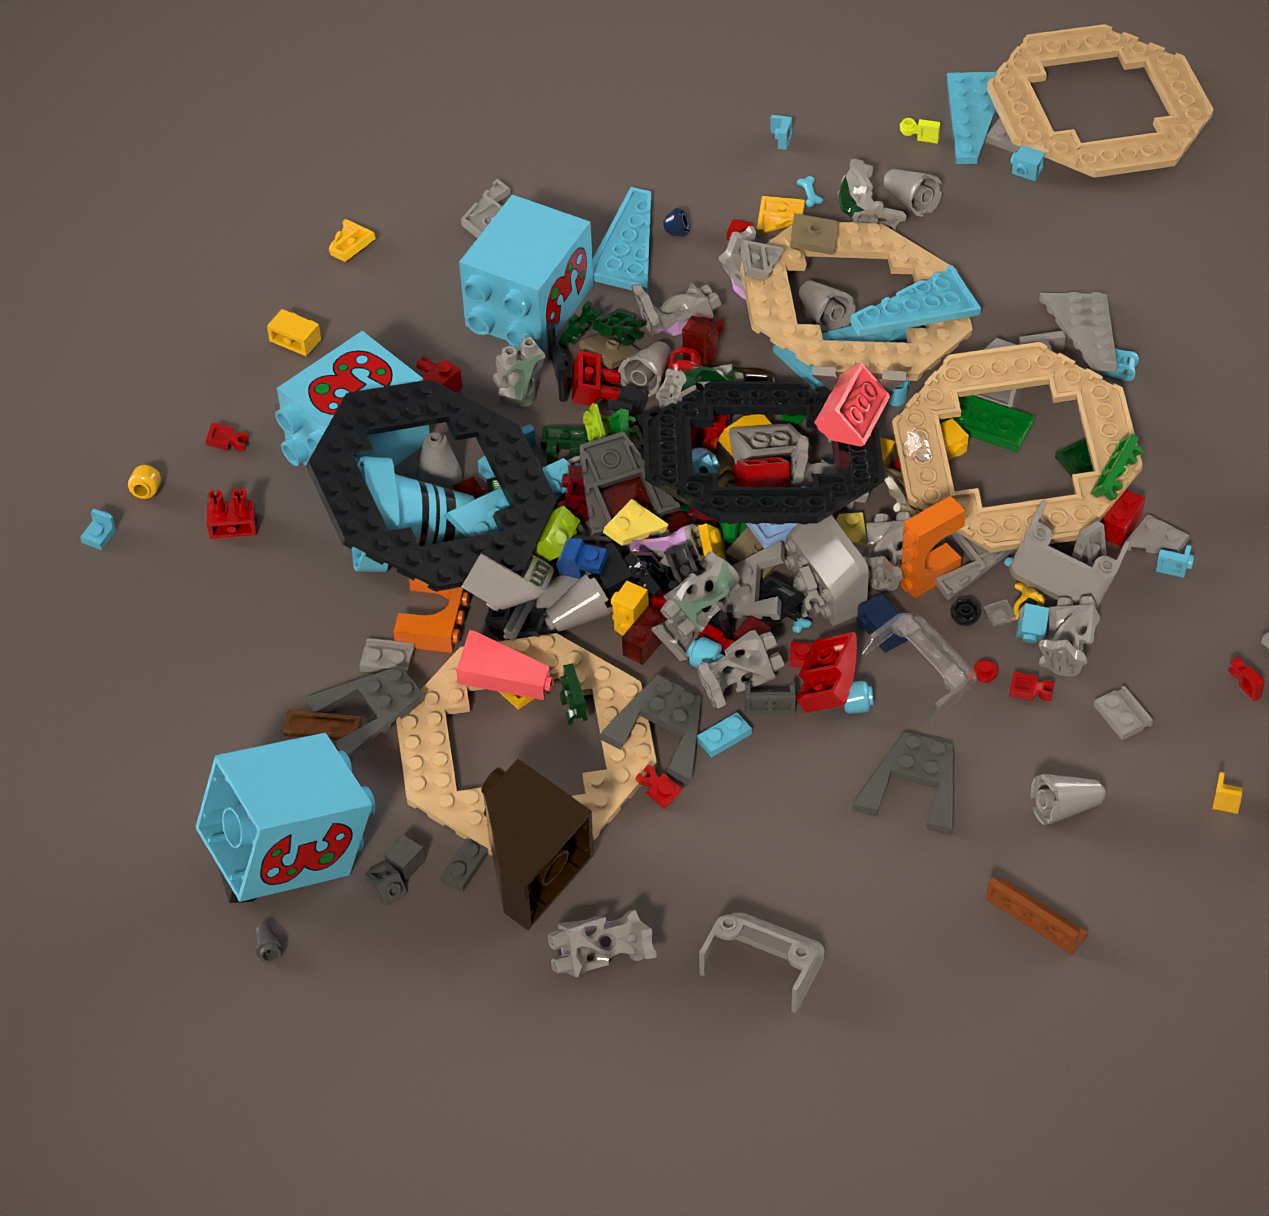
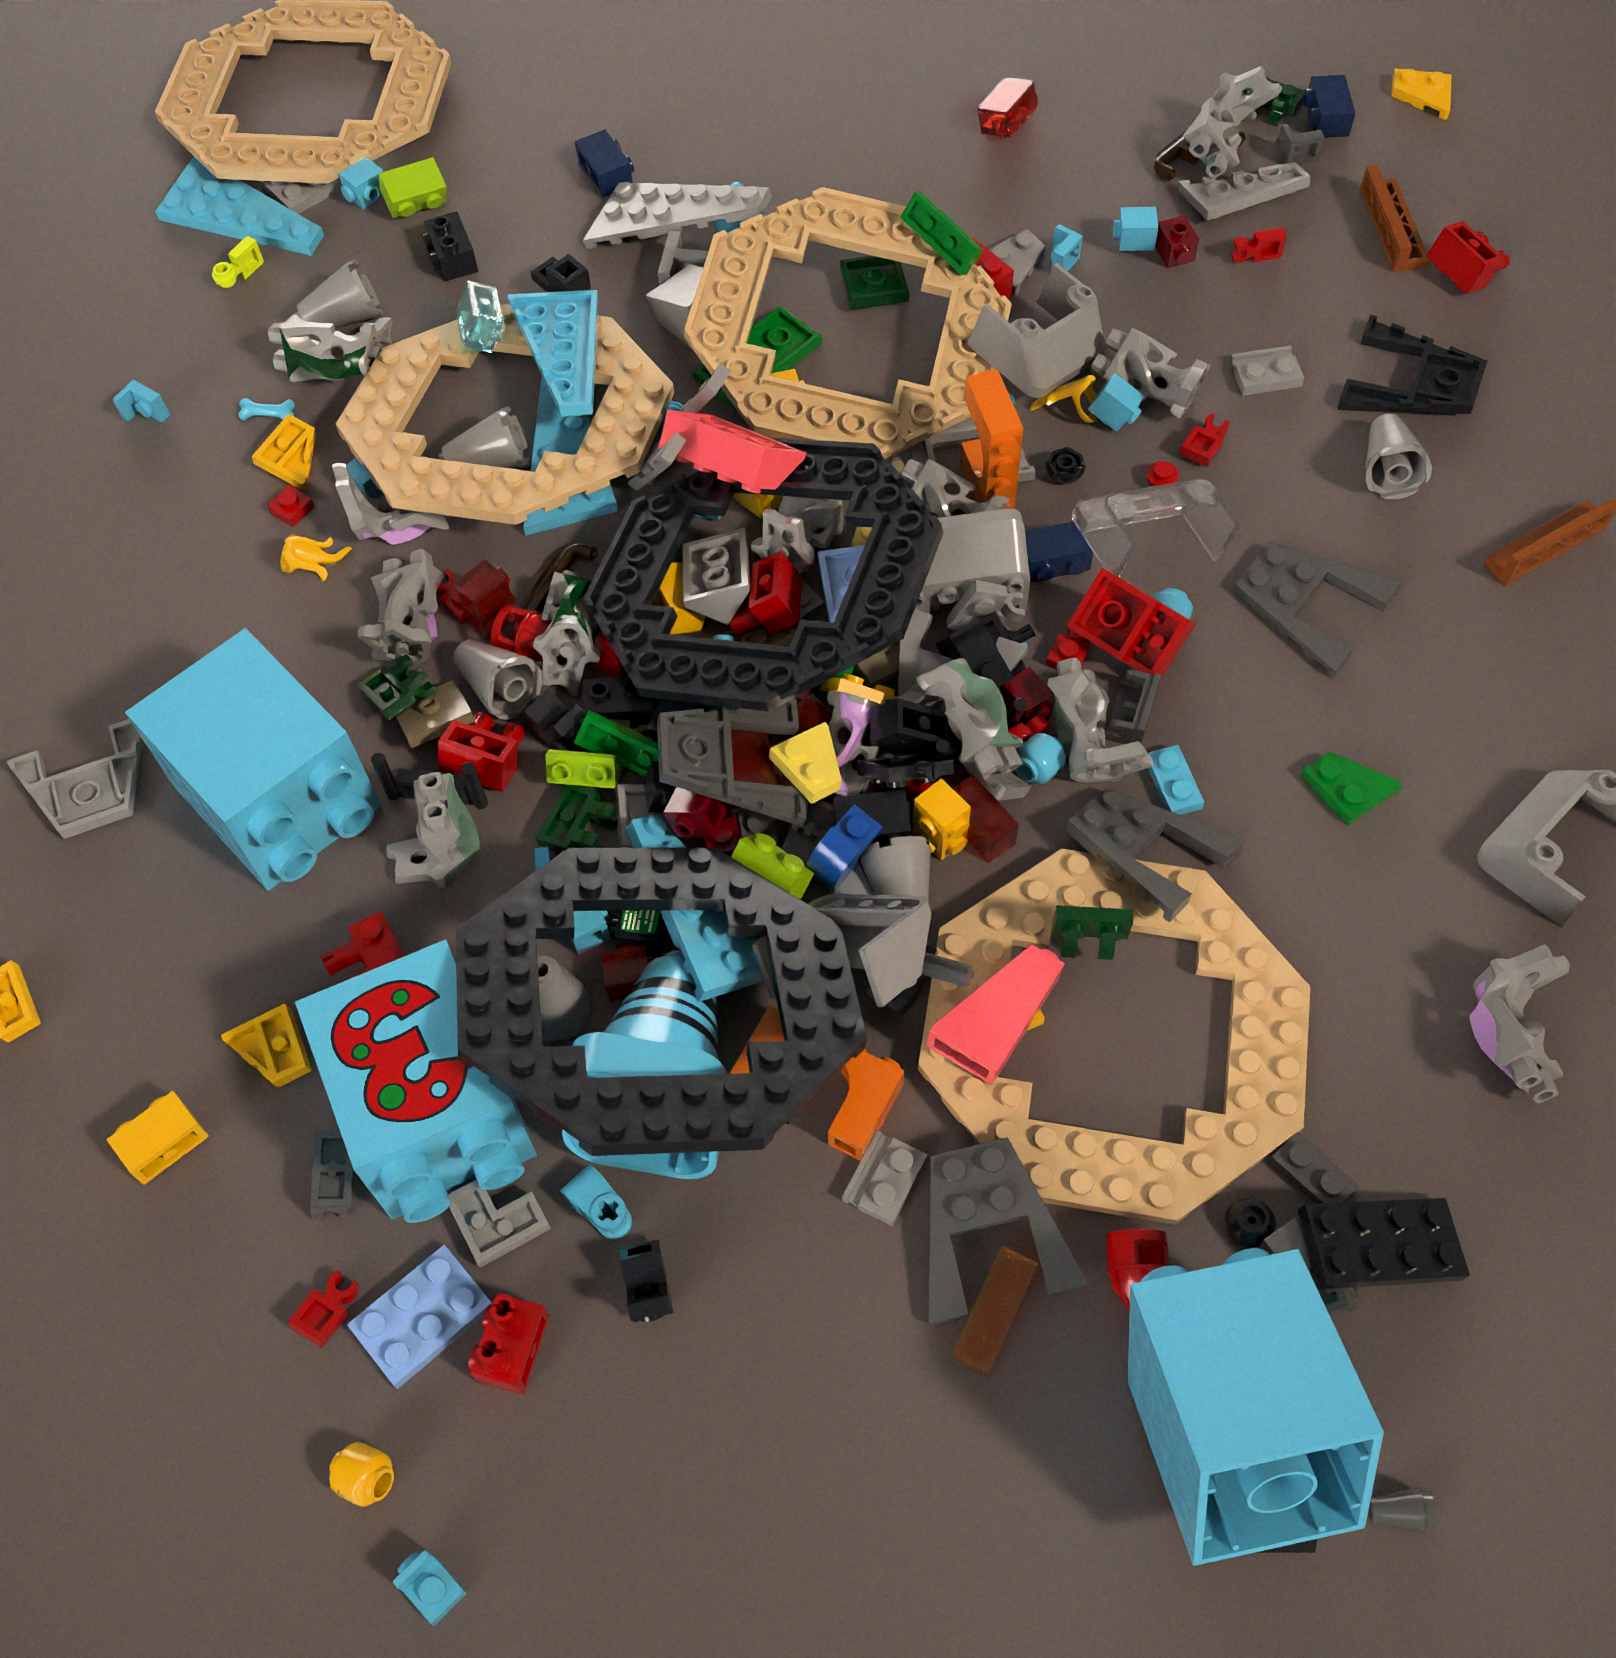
camera: 70 degrees left, 10 degrees up
(232, 472) = (420, 1316): none -> light blue plate
(284, 565) = (645, 1282): none -> black brick
(295, 491) = (492, 1231): none -> light grey plate
(321, 533) = (596, 1199): none -> medium azure piece
(374, 776) = (1132, 1256): none -> red helmet
(424, 898) = (1382, 1243): none -> black plate
(425, 831) = (1241, 1229): none -> black plate
(535, 839) = (1378, 1052): dark brown slope -> none
(578, 324) = (363, 733): dark green plate -> none
(625, 248) = (210, 622): medium azure wing -> none
(661, 788) = (1250, 878): red plate -> none
(677, 223) = (238, 567): dark blue cone -> none
(699, 249) = (308, 554): none -> yellow piece
(757, 584) = (980, 651): none -> black brick
(759, 258) = (406, 471): light grey wing -> none
(760, 832) = (1349, 786): none -> green wing
(813, 234) = (379, 408): dark tan plate -> none
(918, 255) = (479, 317): none -> clear light blue brick
(918, 446) = (817, 407): clear tile -> none
(989, 290) = (561, 275): none -> black brick
(994, 226) = (450, 246): none -> black brick
(999, 614) = (1081, 433): clear plate -> none
(1033, 188) = (413, 188): none -> lime brick
(1090, 544) = (1022, 300): light grey wing -> none
(1119, 278) = (603, 161): none -> dark blue brick
(1161, 821) = (1442, 384): none -> black wing
(1219, 596) = (1136, 228): none -> medium azure brick
(1223, 626) = (1176, 241): none -> dark red brick
(1227, 797) = (1419, 318): yellow panel -> none

